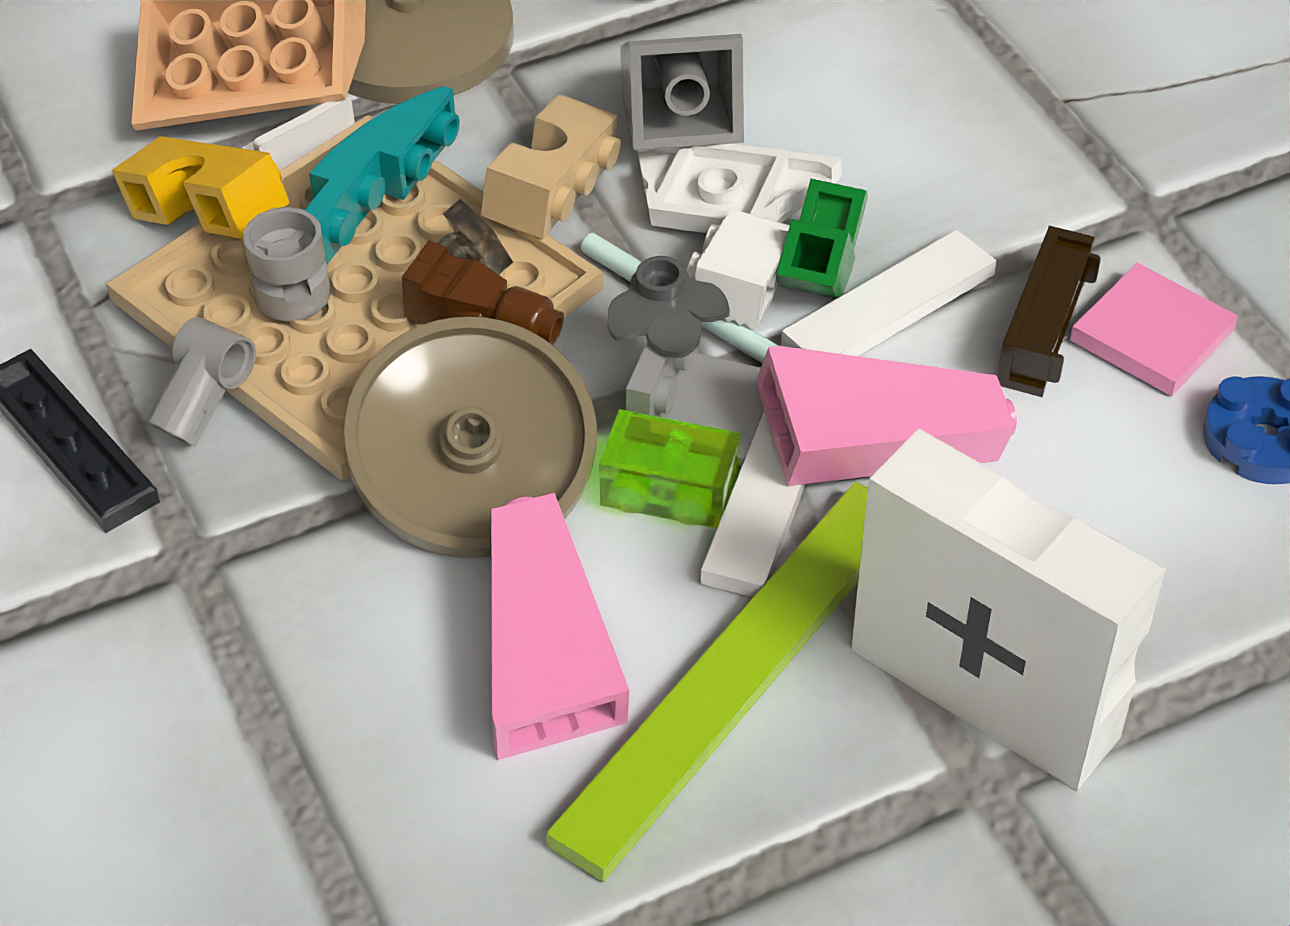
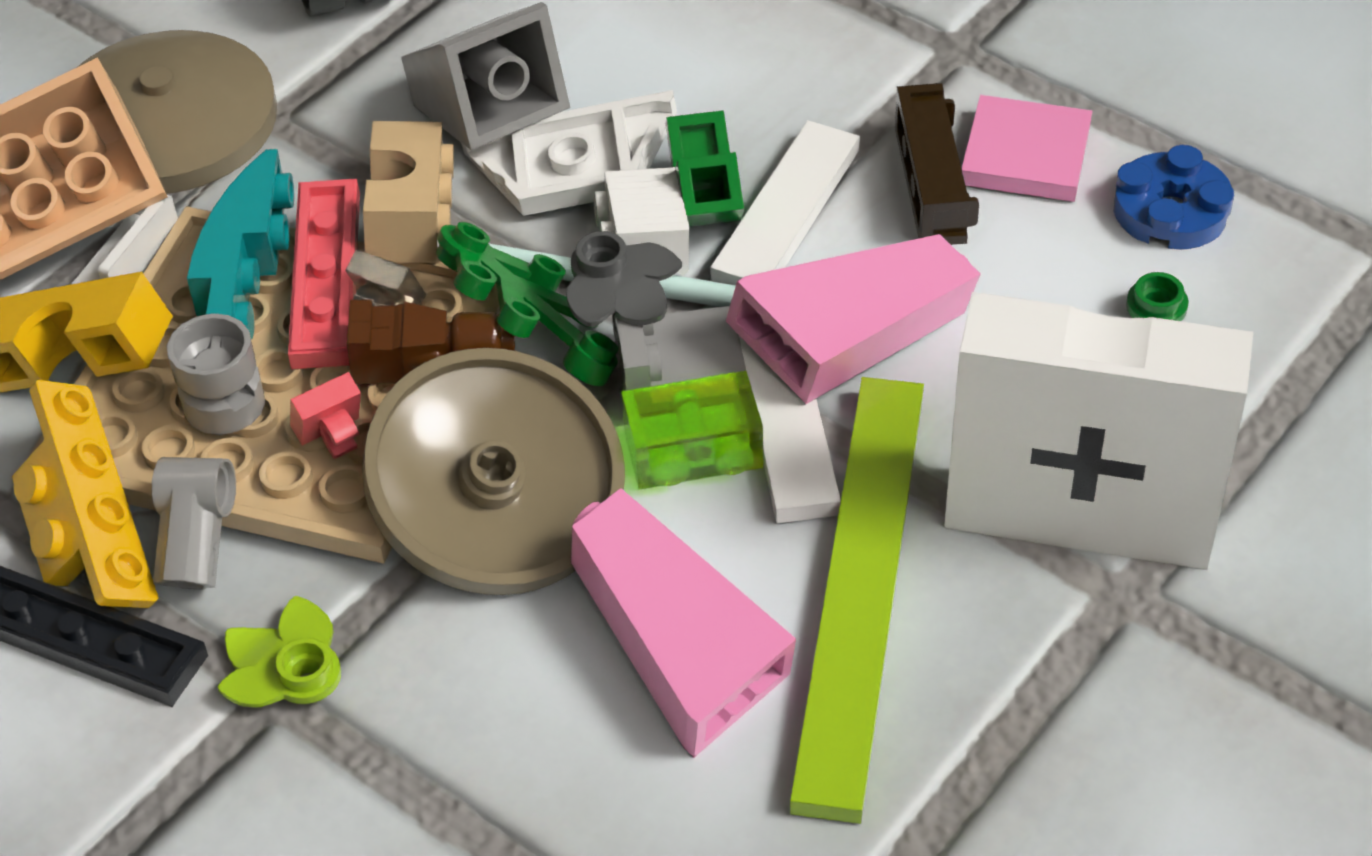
camera: 25 degrees left, 0 degrees up
(126, 330) = (78, 502): none -> yellow bracket
(211, 531) = (273, 659): none -> lime plate
(358, 331) = (328, 413): none -> coral tile
(455, 177) = (320, 285): none -> coral tile
(566, 237) = (525, 297): none -> green plant
(1186, 519) = (1157, 297): none -> green plate

